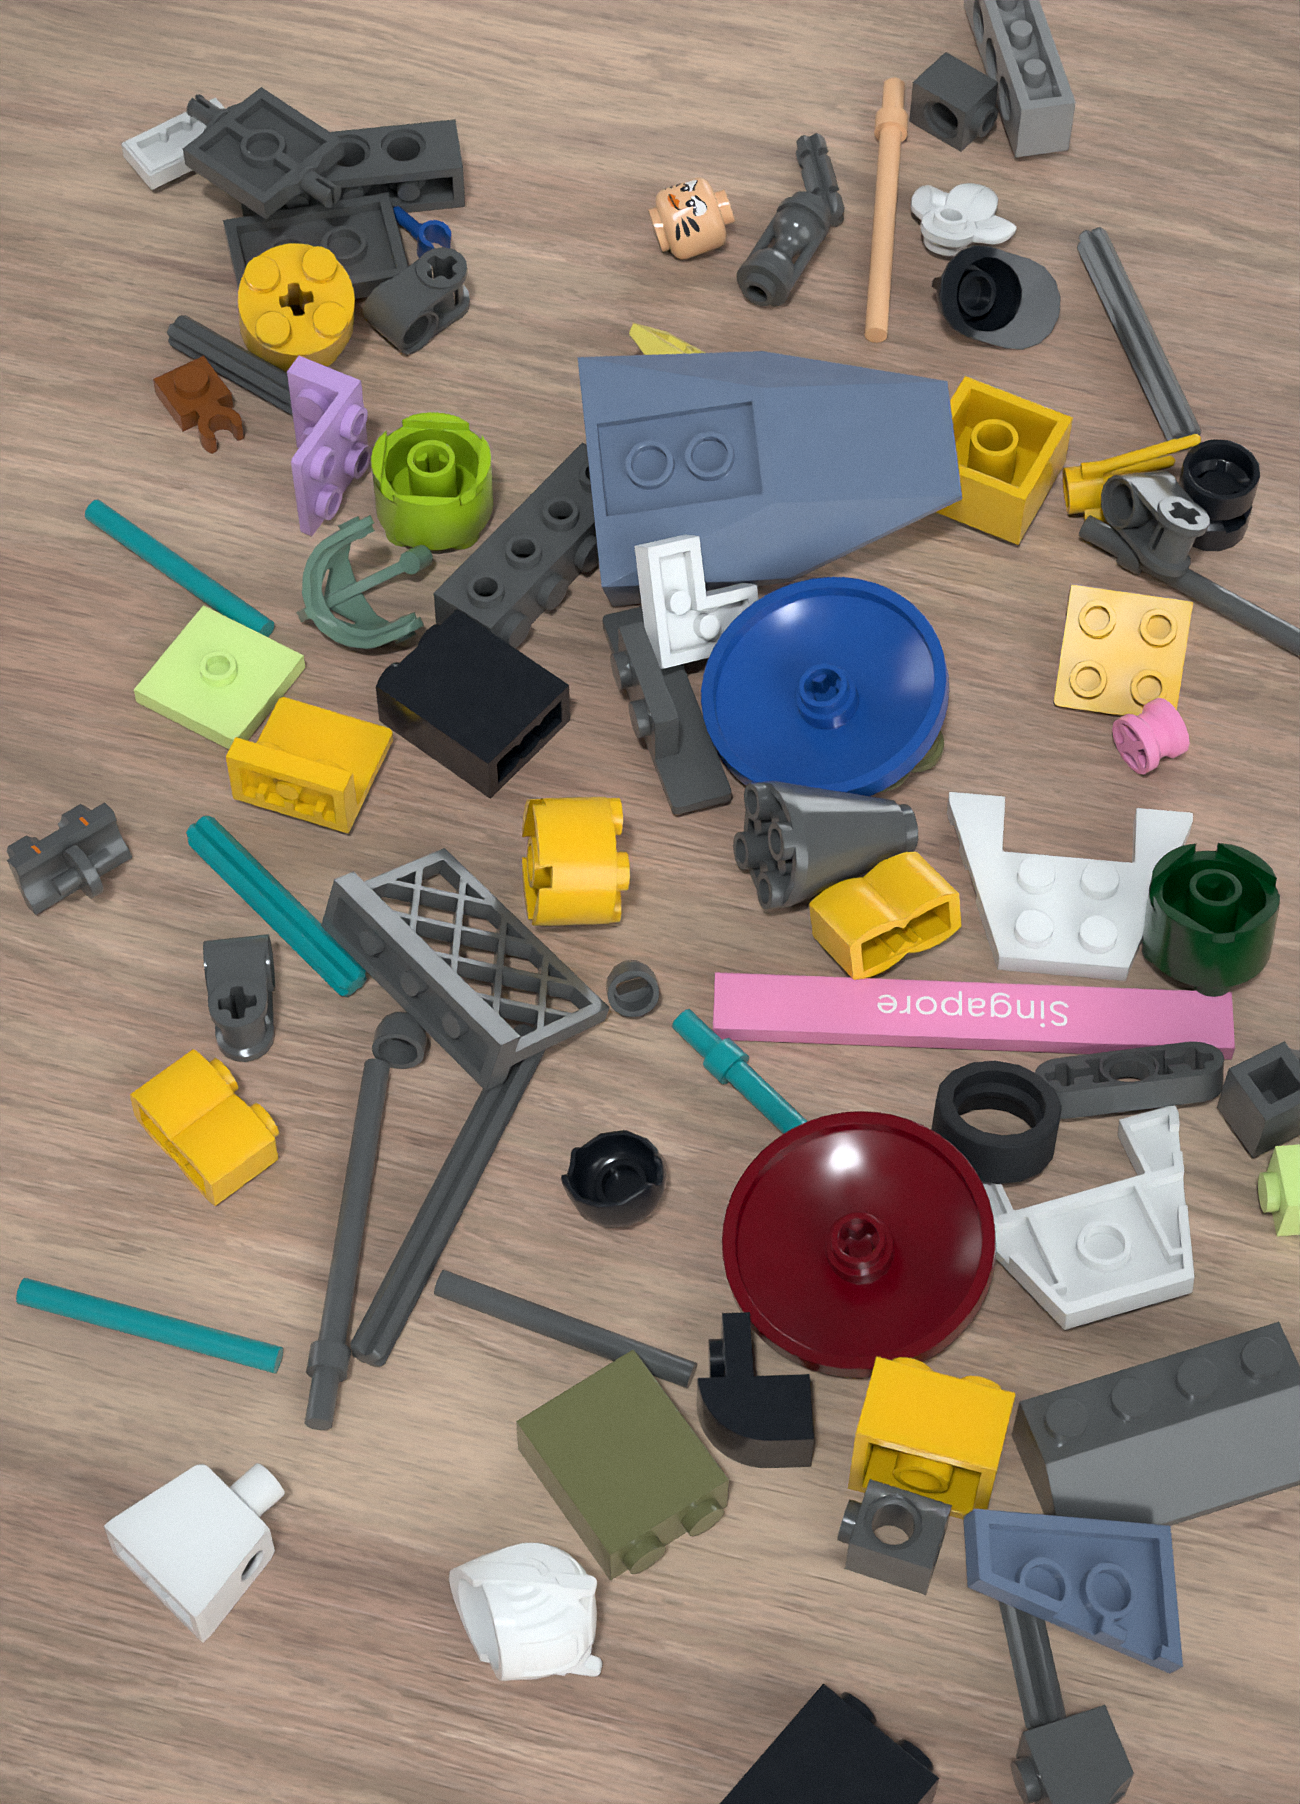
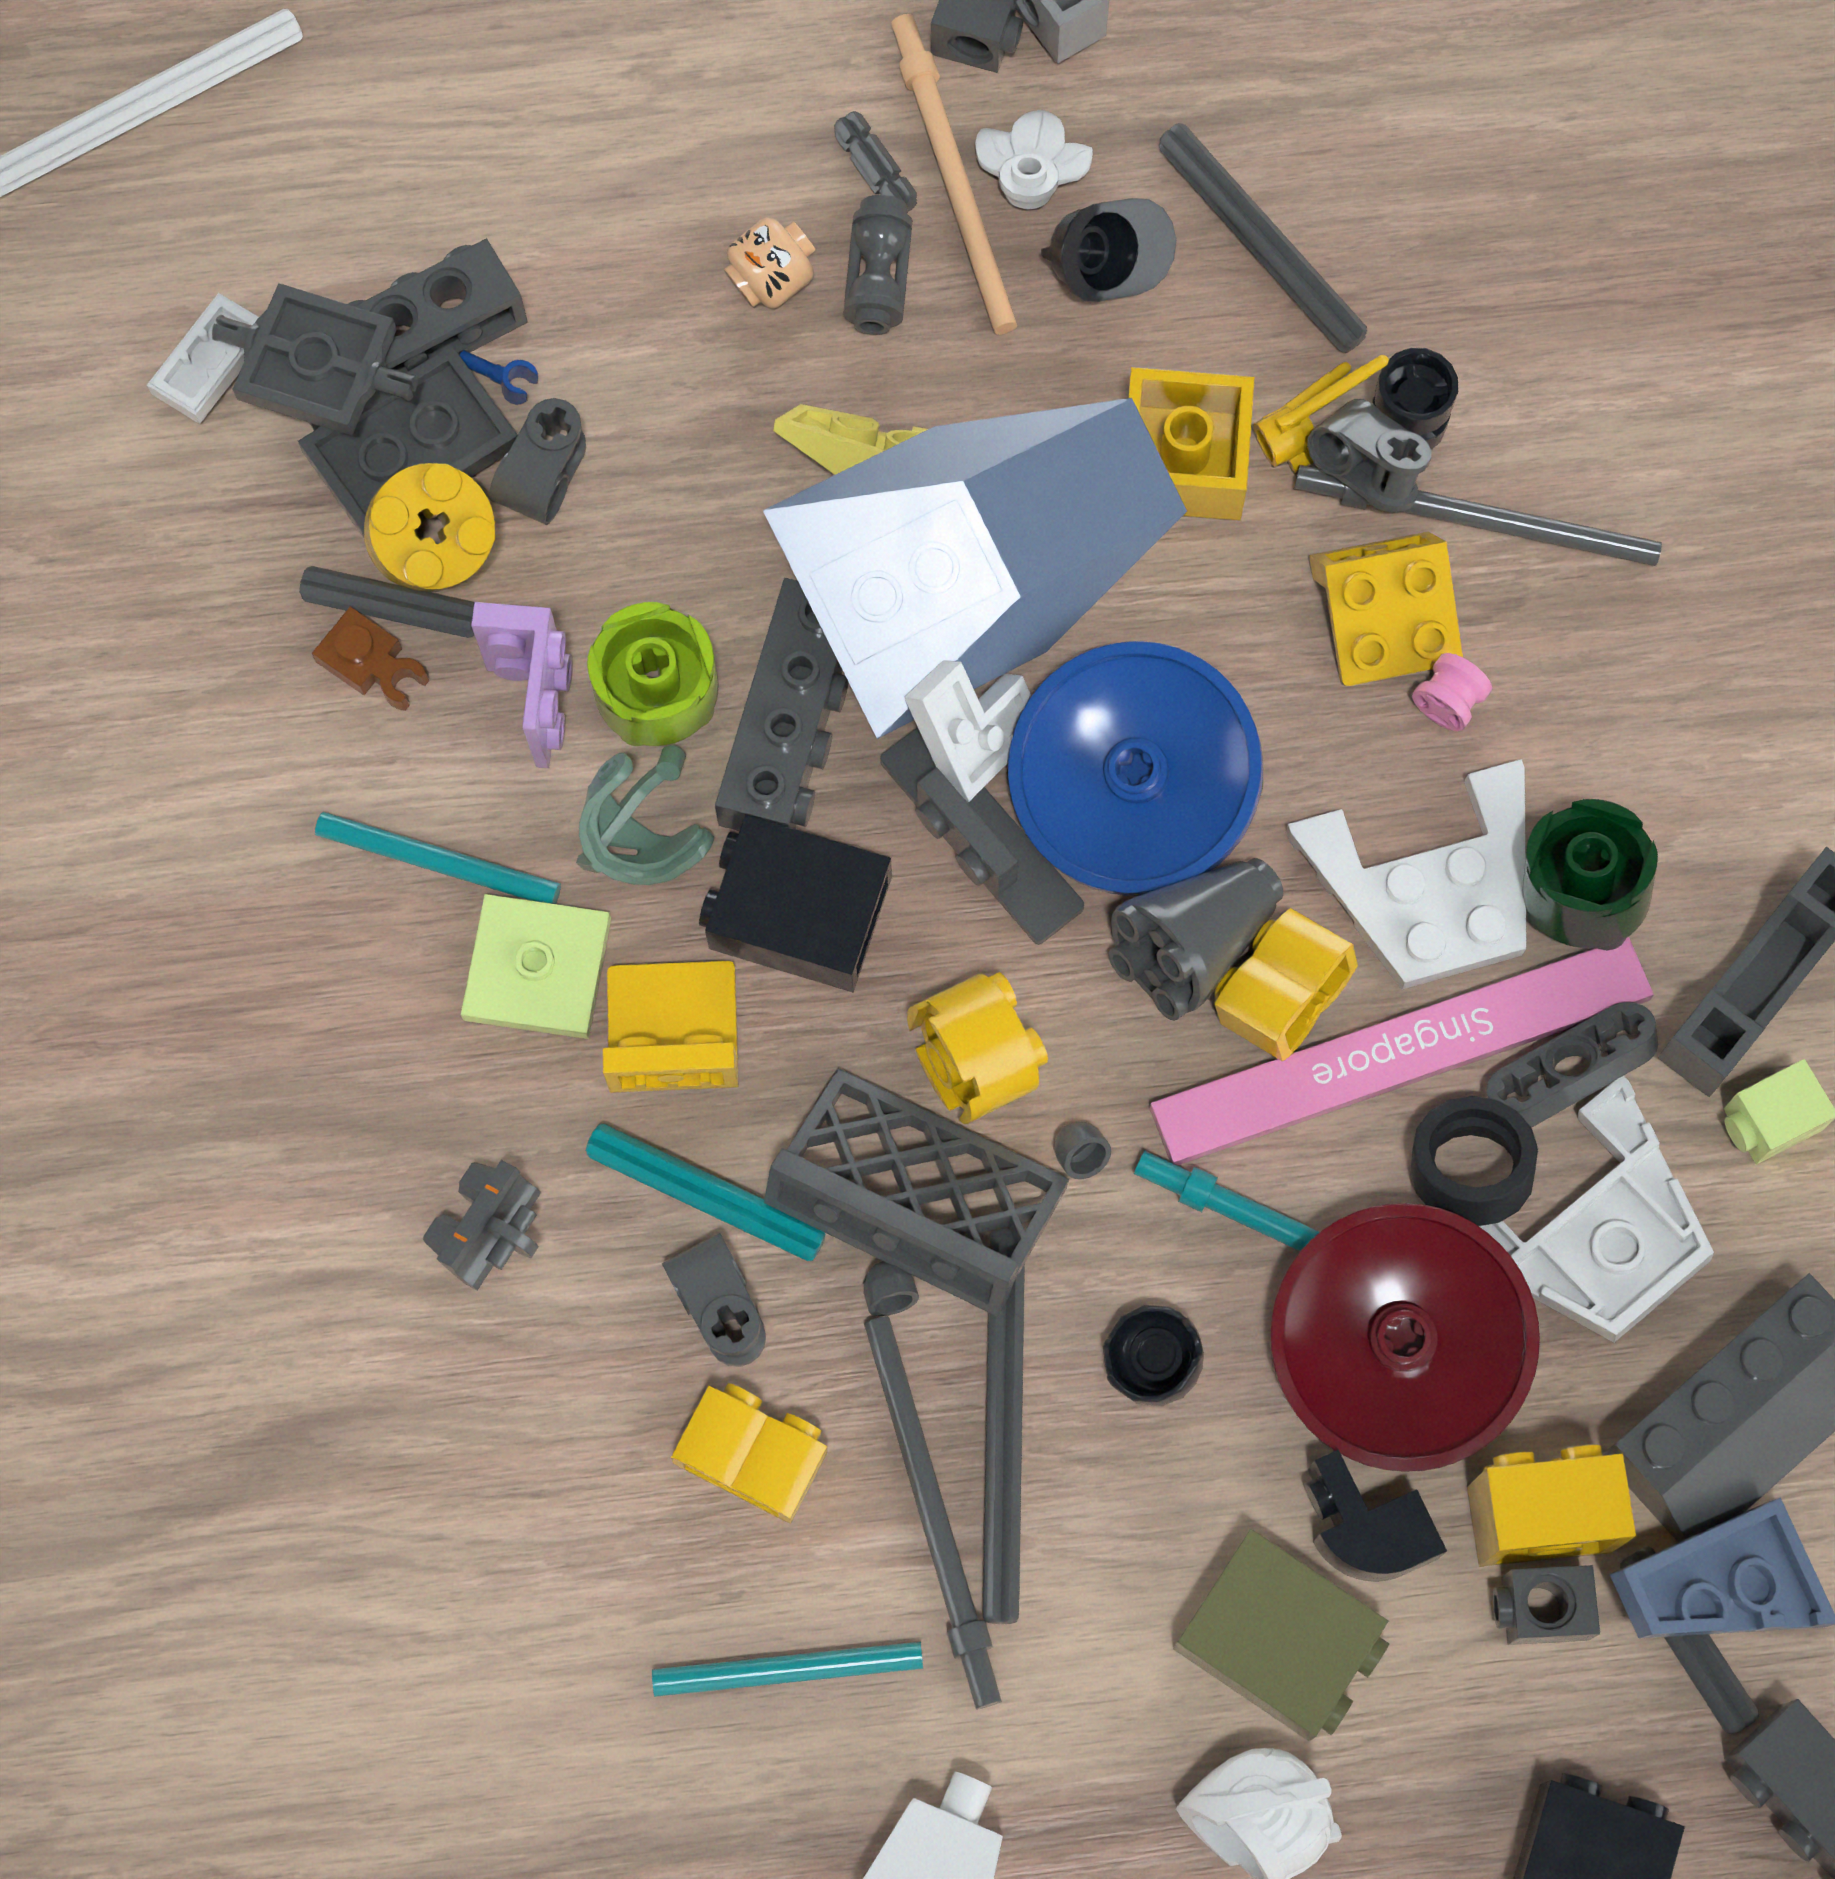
camera: 20 degrees left, 15 degrees up
(561, 1327) = (1166, 1517): dark grey bar -> none

